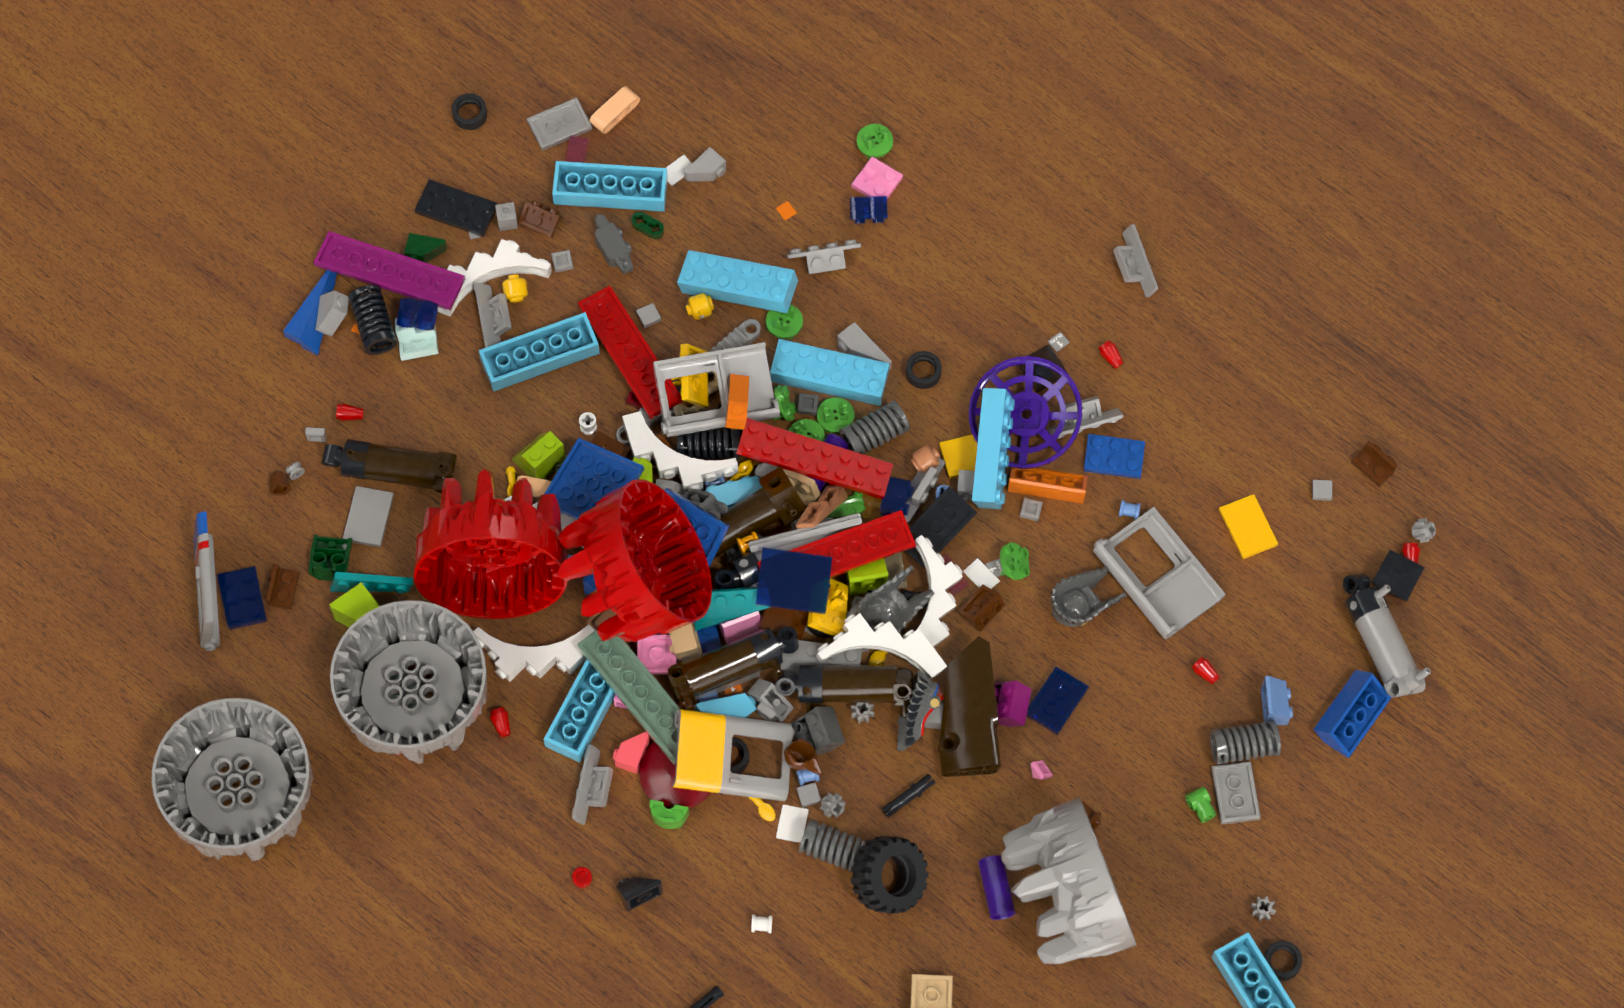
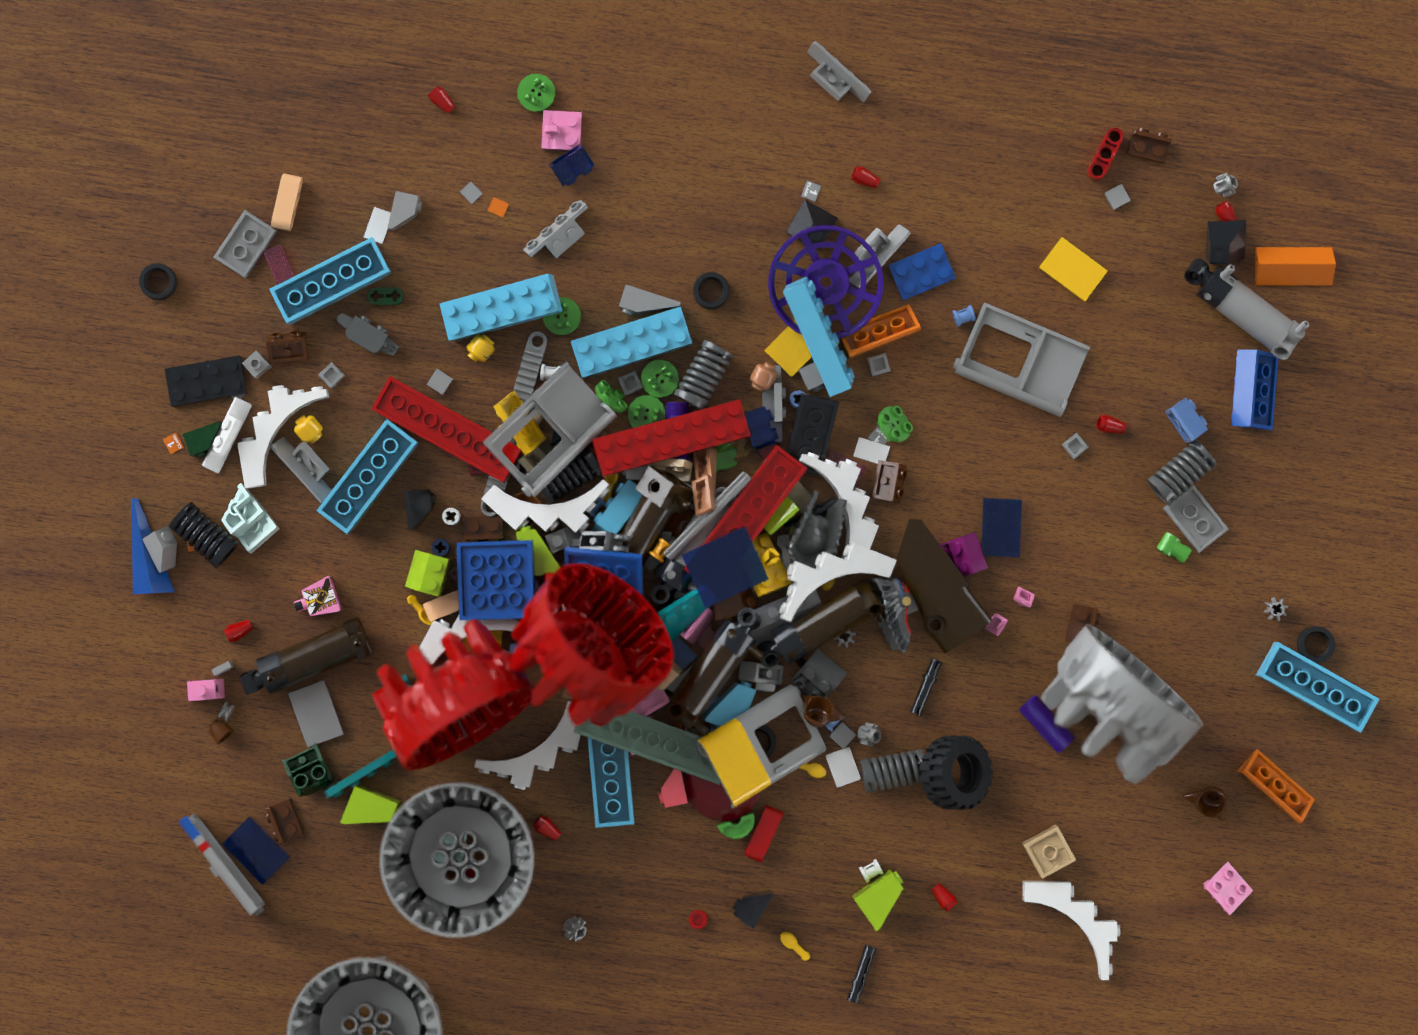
camera: 30 degrees left, 20 degrees up
(287, 439) = (205, 689): none -> bright pink torso
(389, 270) = (188, 481): magenta plate -> none
(396, 241) = (173, 443): none -> orange sticker
(417, 314) = (239, 509): clear blue brick -> none
(434, 425) = (319, 598): none -> torso
(453, 251) = (226, 435): none -> white bracket
(469, 819) = (574, 928): none -> light grey gear
(565, 398) = (418, 506): none -> black slope
(565, 437) = (437, 551): none -> dark blue bush
(593, 785) = (659, 837): light grey bracket -> none
(651, 945) = (791, 942): none -> yellow piece
(686, 836) = (763, 833): none -> red beam
(737, 402) = (575, 429): orange slope -> none
(755, 947) = (879, 897): none -> lime slope
(771, 187) = (471, 192): none -> light grey sticker
(793, 102) = (441, 99): none -> red cone
(812, 986) = (944, 897): none -> red cone
(1003, 779) = (997, 624): none -> bright pink slope
(1076, 602) = (970, 431): dark grey piece -> none
(1163, 671) = (1075, 446): none -> light grey tile
(1336, 441) = (1111, 147): none -> red beam
(1446, 632) = (1294, 266): none -> orange slope

